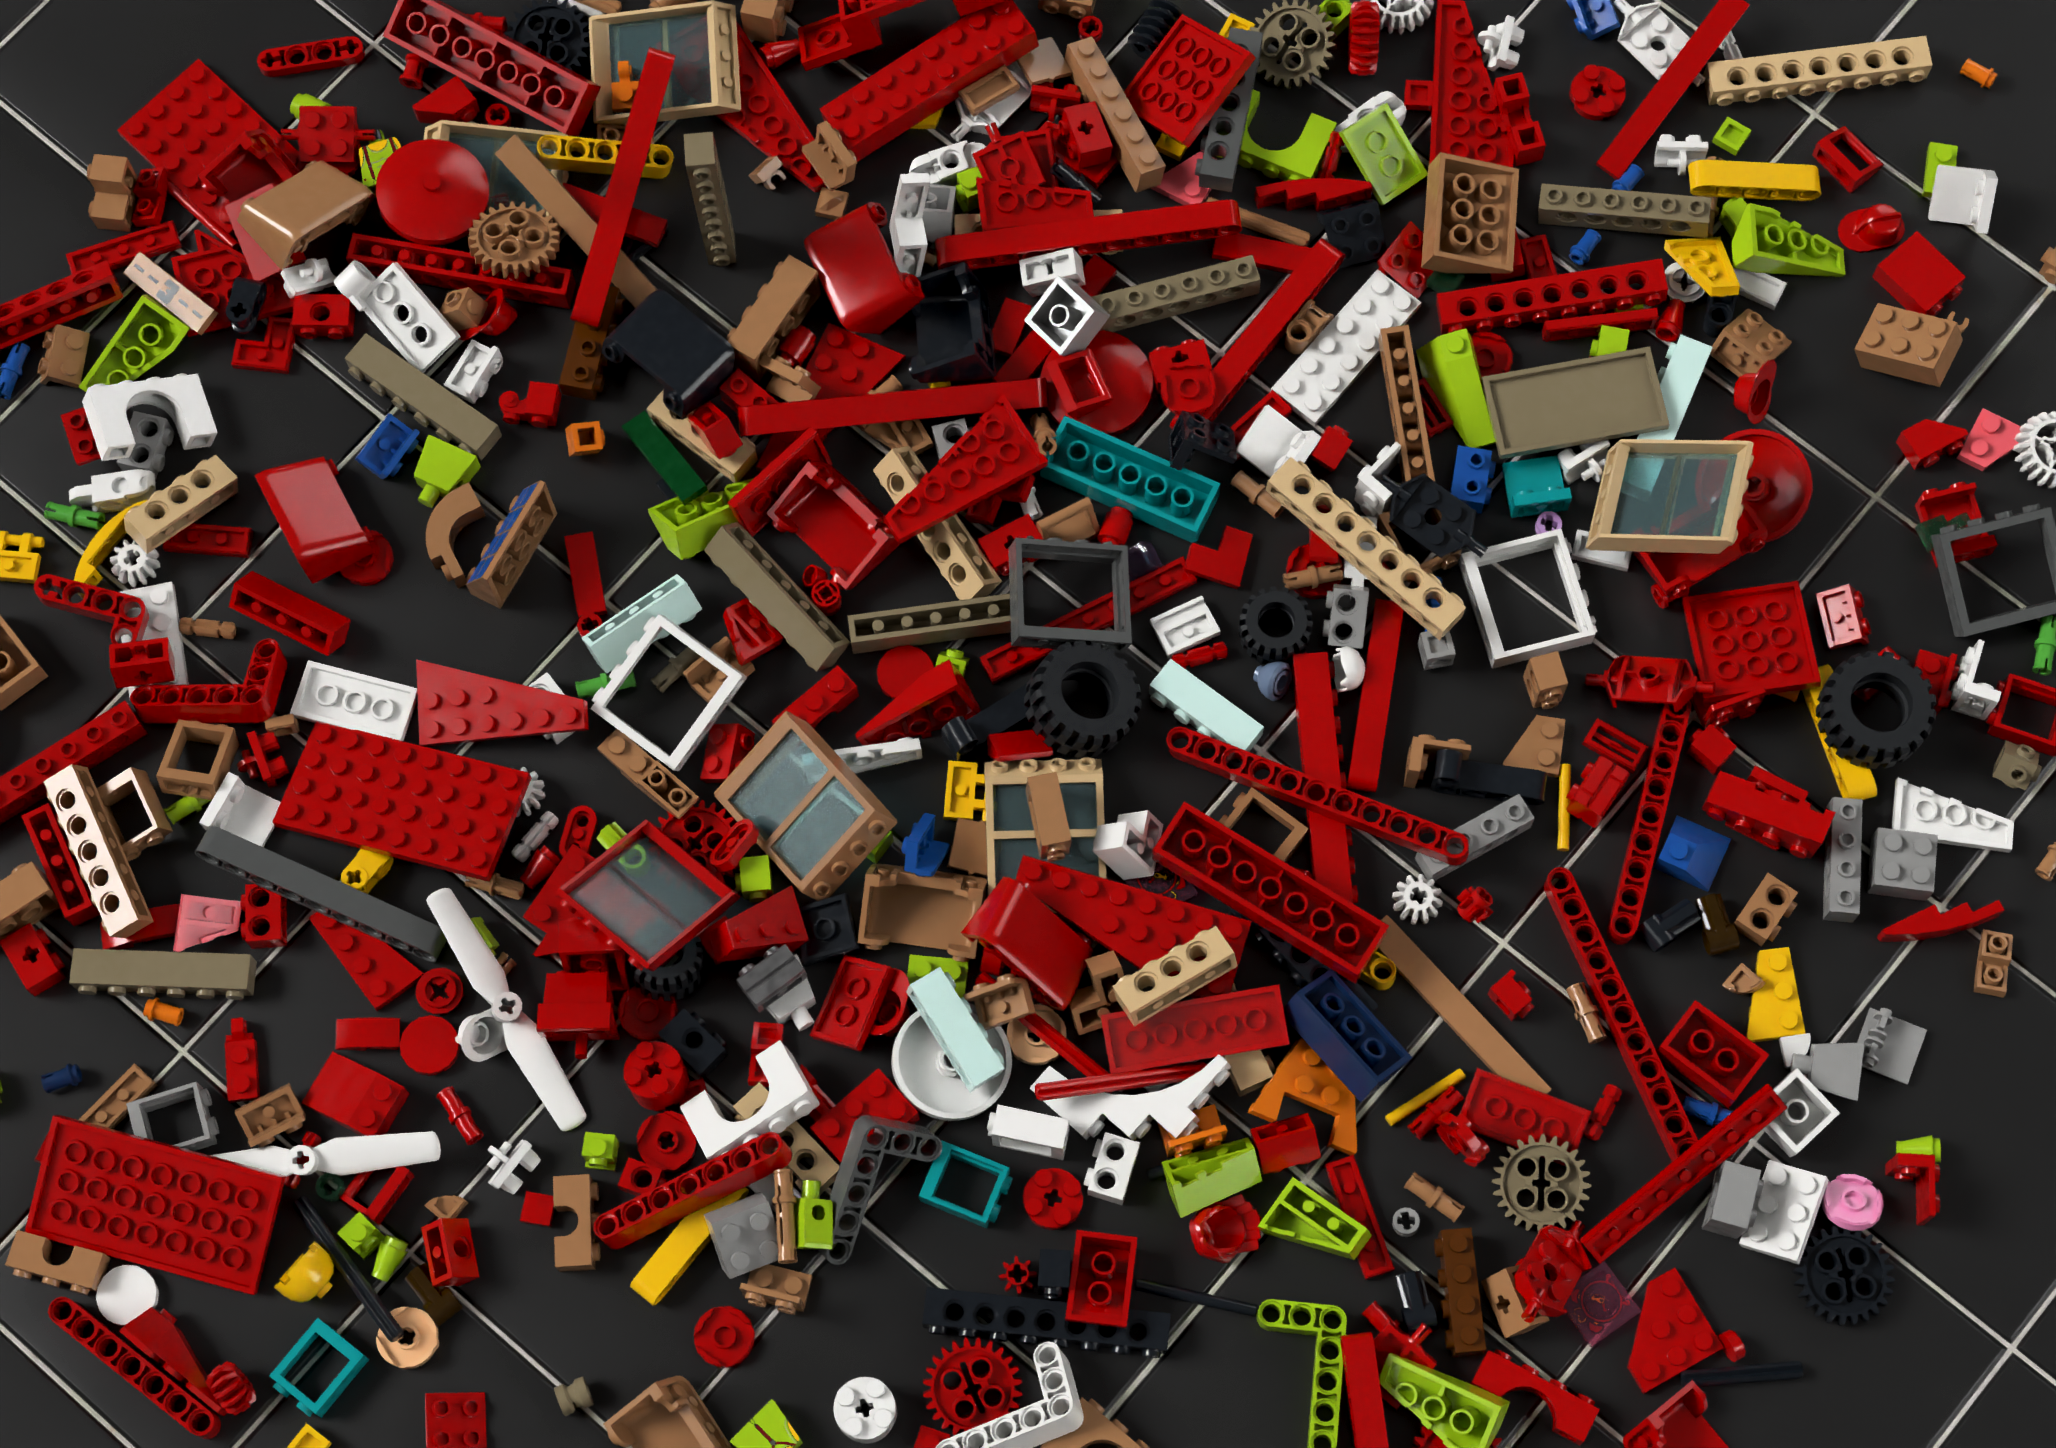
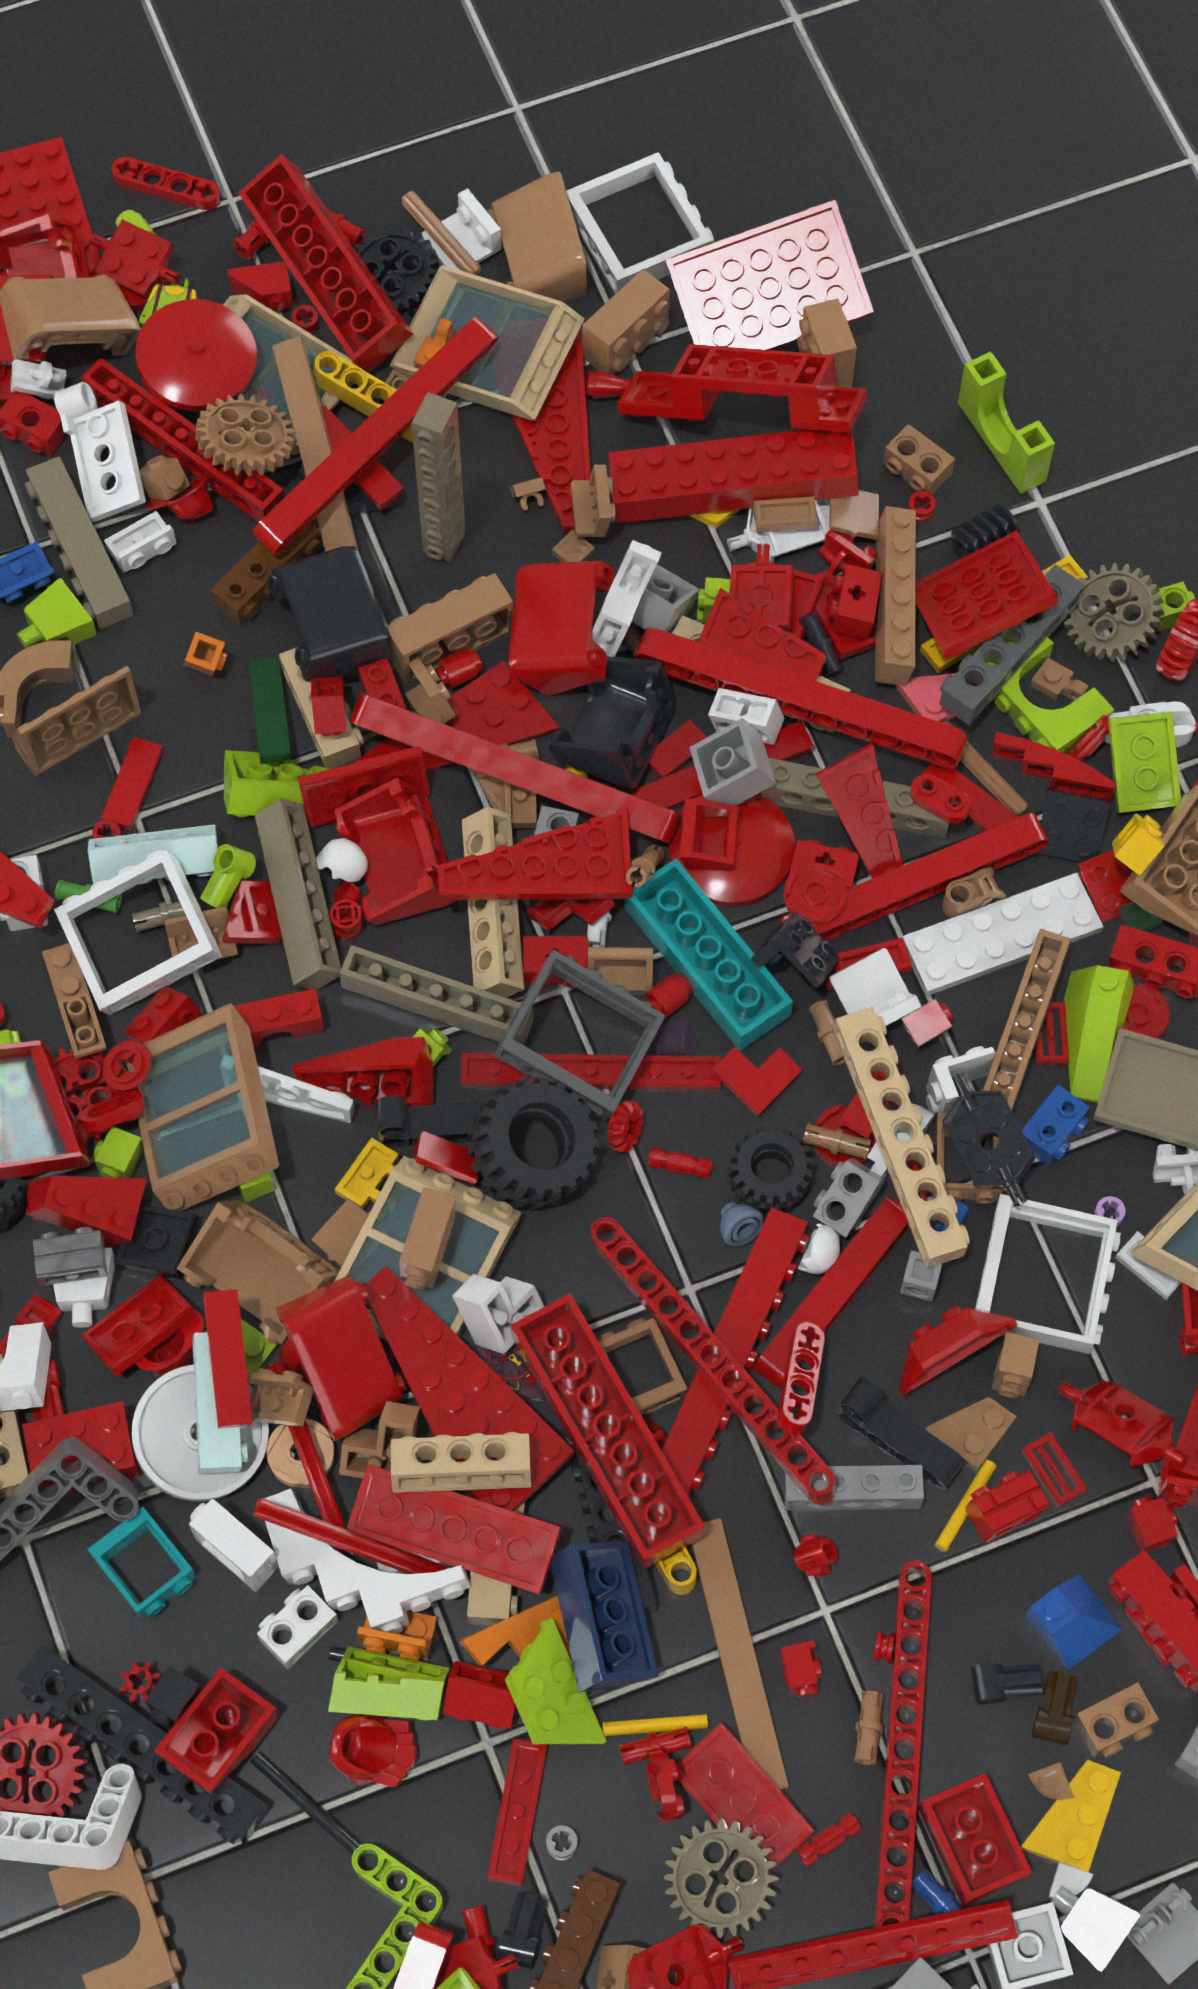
camera: 25 degrees right, 5 degrees down
(537, 408) = (181, 604): red brick -> none
(711, 611) = (230, 867): none -> lime piece
(718, 792) = (114, 1070): none -> red gear
(796, 549) = (344, 860): none -> white hair
(901, 668) = (379, 1023): red tile -> none
(921, 851) = (292, 1208): blue bracket -> none
(936, 160) = (690, 560): white piece -> none
(947, 991) = (227, 1358): none -> red tile
(1061, 1213) = (222, 1605): red plate -> none
(1143, 649) = (625, 1126): none -> red gear
(1185, 299) = (861, 805): none -> red wing
(1185, 626) = (681, 1126): white plate -> none
(1203, 707) = (653, 1217): light aqua brick -> none
(1244, 265) = (937, 800): none -> red plate
(1274, 121) = (1057, 680): none -> medium nougat plate
(1313, 1222) = (463, 1788): lime wedge -> none
(1338, 1115) = (549, 1695): none -> lime wing
(1399, 773) = (804, 1378): none -> red beam
(1413, 908) = (747, 1519): white gear -> none
(1420, 222) = (1138, 843): none -> yellow brick
(1423, 750) = (849, 1369): medium nougat bracket -> none
(1434, 1197) = (604, 1832): medium nougat pin -> none
(1487, 689) = (949, 1342): none -> red wedge
(1535, 486) = (1117, 1166): teal bracket -> none
(1563, 947) = (883, 1647): none -> red bush
(1648, 831) = (1038, 1575): red beam -> none

